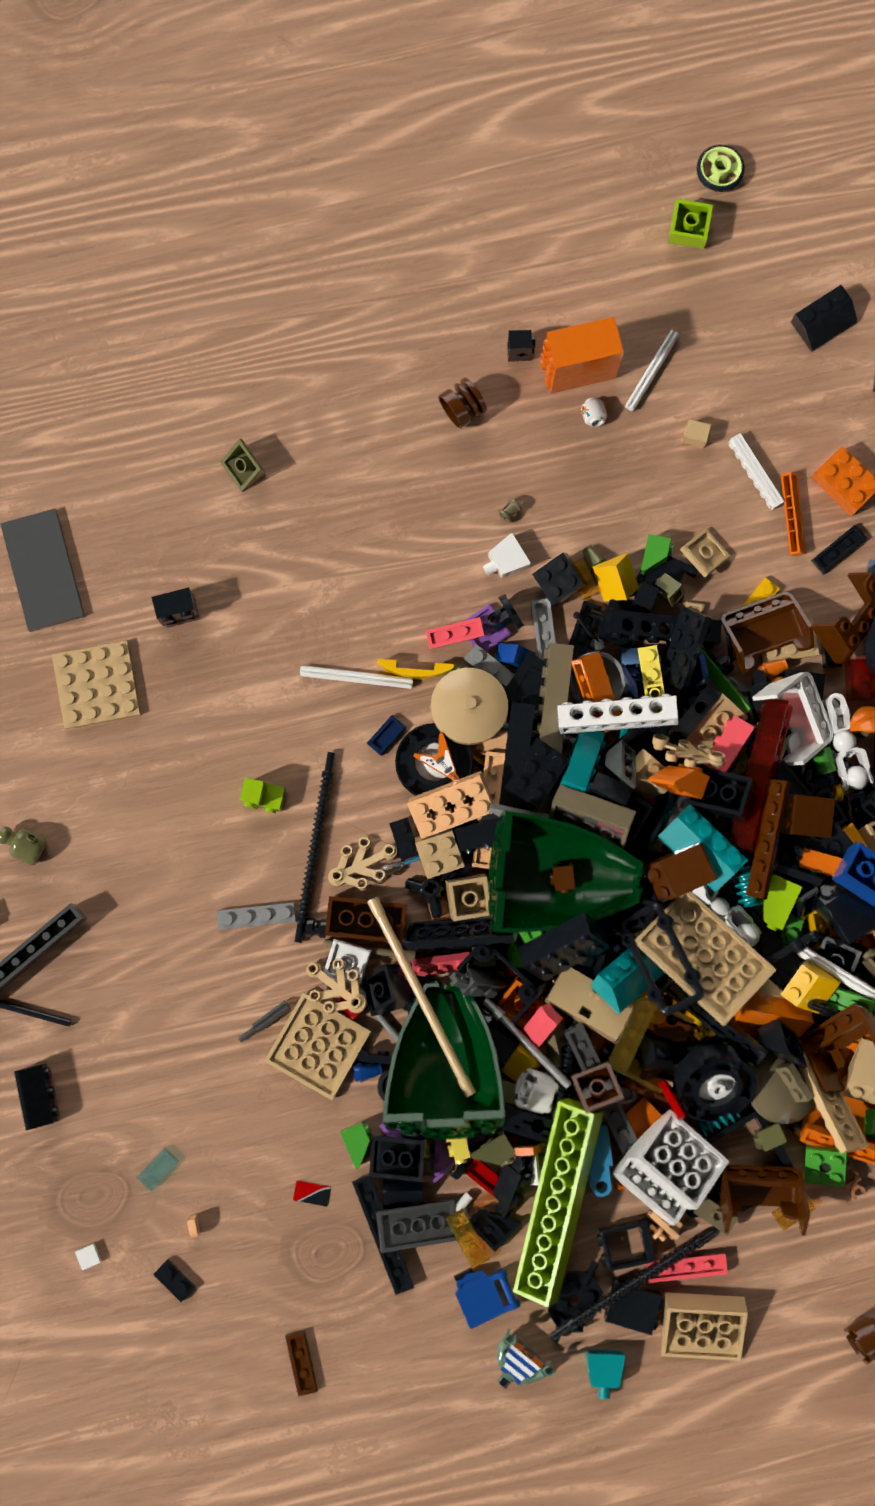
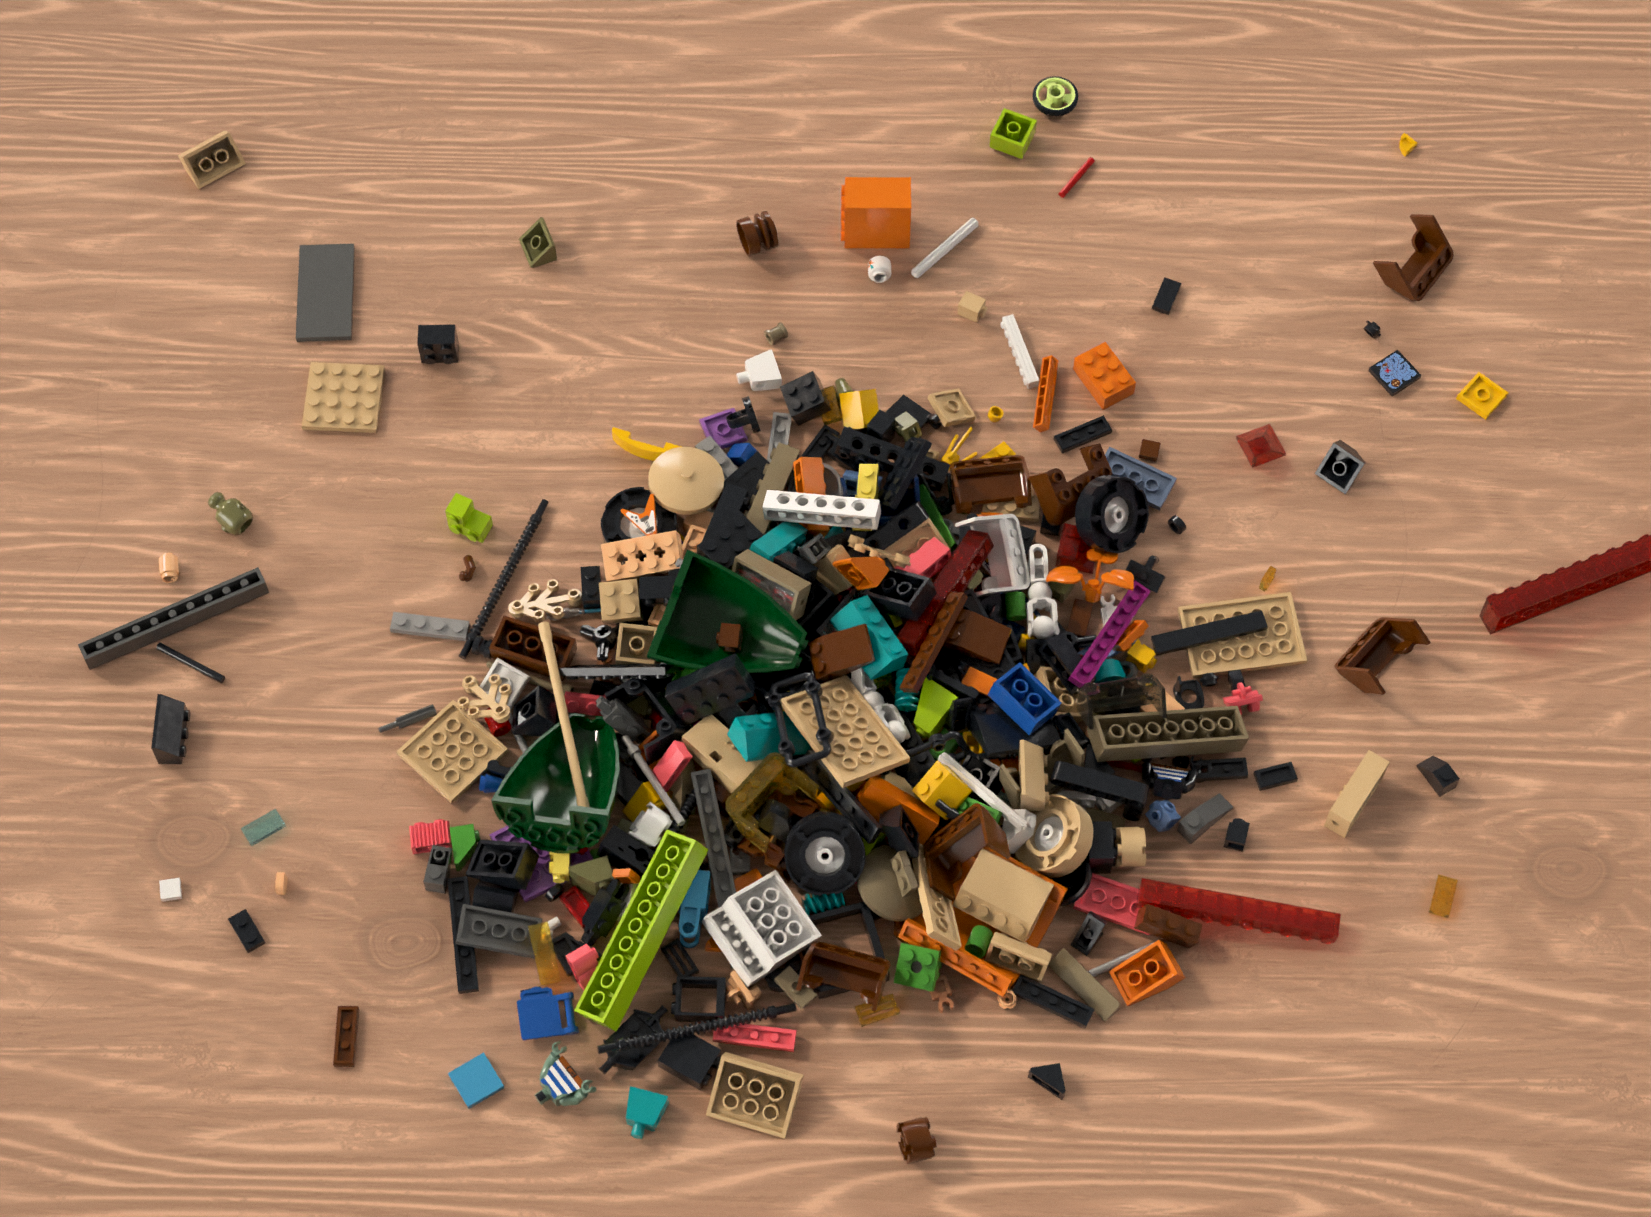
camera: 15 degrees right, 20 degrees down
(278, 844) = (470, 569): none -> reddish brown arm
(311, 1193) = (405, 885): sticker -> none
(322, 1142) = (426, 835): none -> coral brick
(341, 1176) = (438, 869): none -> dark grey slope
(358, 677) = (589, 443): white axle -> none
(386, 735) = (597, 501): dark blue tile -> none
(437, 1377) = (476, 1080): none -> dark azure tile
(455, 633) = (693, 423): coral plate -> none
(510, 1244) = (583, 963): none -> coral brick
(520, 345) = (825, 198): black brick -> none
(596, 643) = (826, 460): hinge -> none
(597, 1087) = (706, 820): reddish brown slope -> none
(607, 1218) = (695, 970): none -> black tile
(656, 553) = (903, 396): bright green slope -> none
(672, 1100) = (779, 859): red tile -> none
(717, 610) = (952, 456): none -> yellow plant
(752, 545) = (993, 411): none -> yellow hinge
(762, 259) = (1076, 177): none -> red bar
(769, 1136) = (867, 923): olive brick -> none
(825, 318) = (1120, 237): black slope -> none

